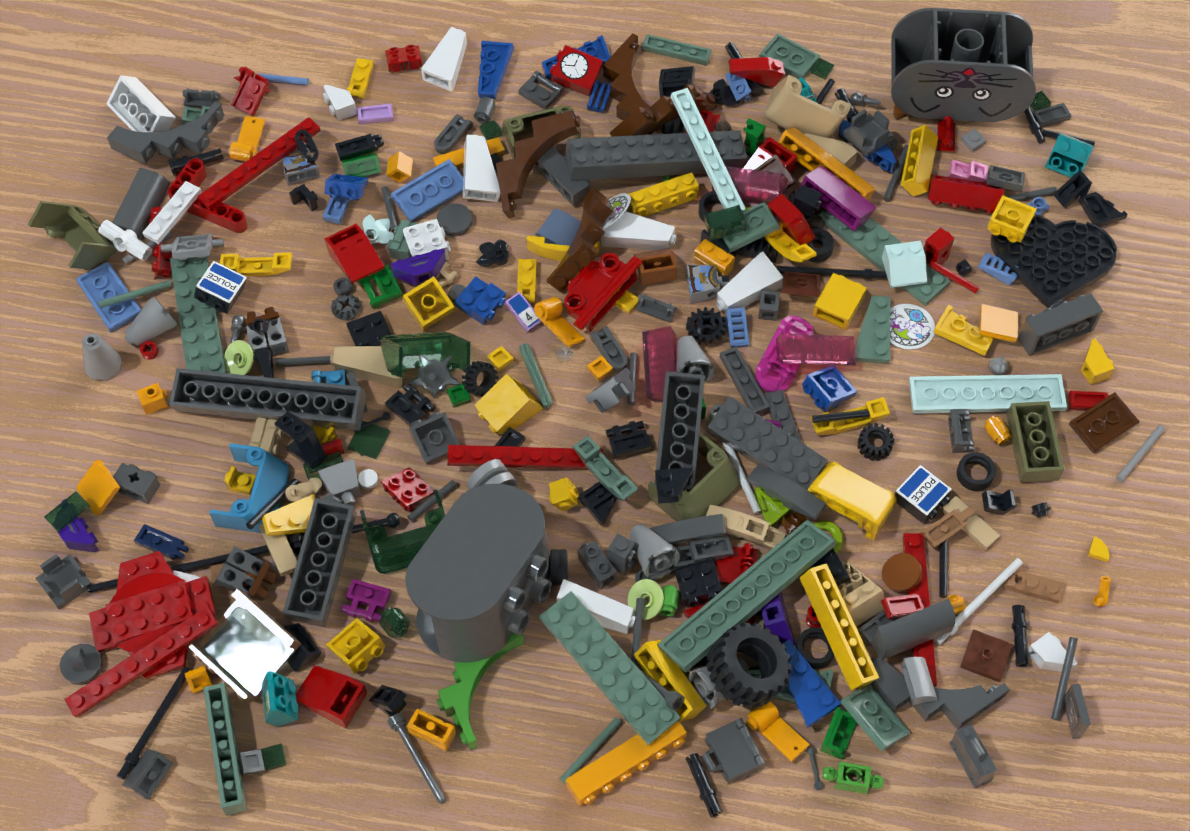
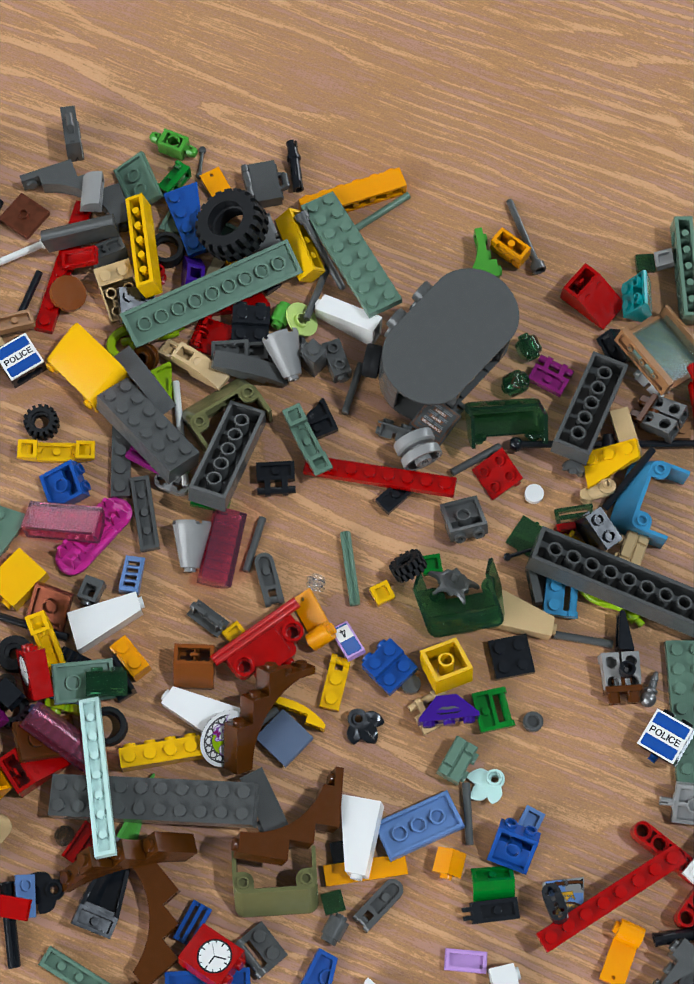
camera: 170 degrees left, 10 degrees up
(238, 358) = (651, 649): yellowish green dish -> none
(239, 481) = (659, 517): yellow bracket -> none
(259, 265) = (625, 769): yellow slope -> none
(303, 193) = (557, 846): black bracket -> none
(341, 481) = (560, 491): light grey torso -> none
(349, 312) = (523, 695): dark grey gear -> none
(353, 253) = (516, 747): red slope -> none
(356, 646) = (565, 334): yellow plate -> none
(388, 700) = (542, 283): black slope -> none
(396, 578) = (515, 383): none -> clear green head
(405, 409) = (481, 551): black plate -> none
(425, 238) = (434, 749): white bracket -> none
(454, 219) = (398, 782): dark grey tile -> none
(507, 405) = (384, 535): yellow slope -> none
(563, 494) = (352, 431): yellow brick -> none
(573, 545) = (352, 389): none -> dark grey bar
(599, 368) = (284, 559): light orange plate -> none
(612, 391) = (281, 521): dark grey panel -> none
(671, 483) = (250, 399): black wing -> none
(704, 282) = (149, 633): torso -> none
(706, 326) = (169, 577): black gear -> none
(754, 136) = (33, 802): green hinge -> none
(840, 416) = (66, 448): black bar -> none
(957, 603) = (33, 262): light orange plate -> none

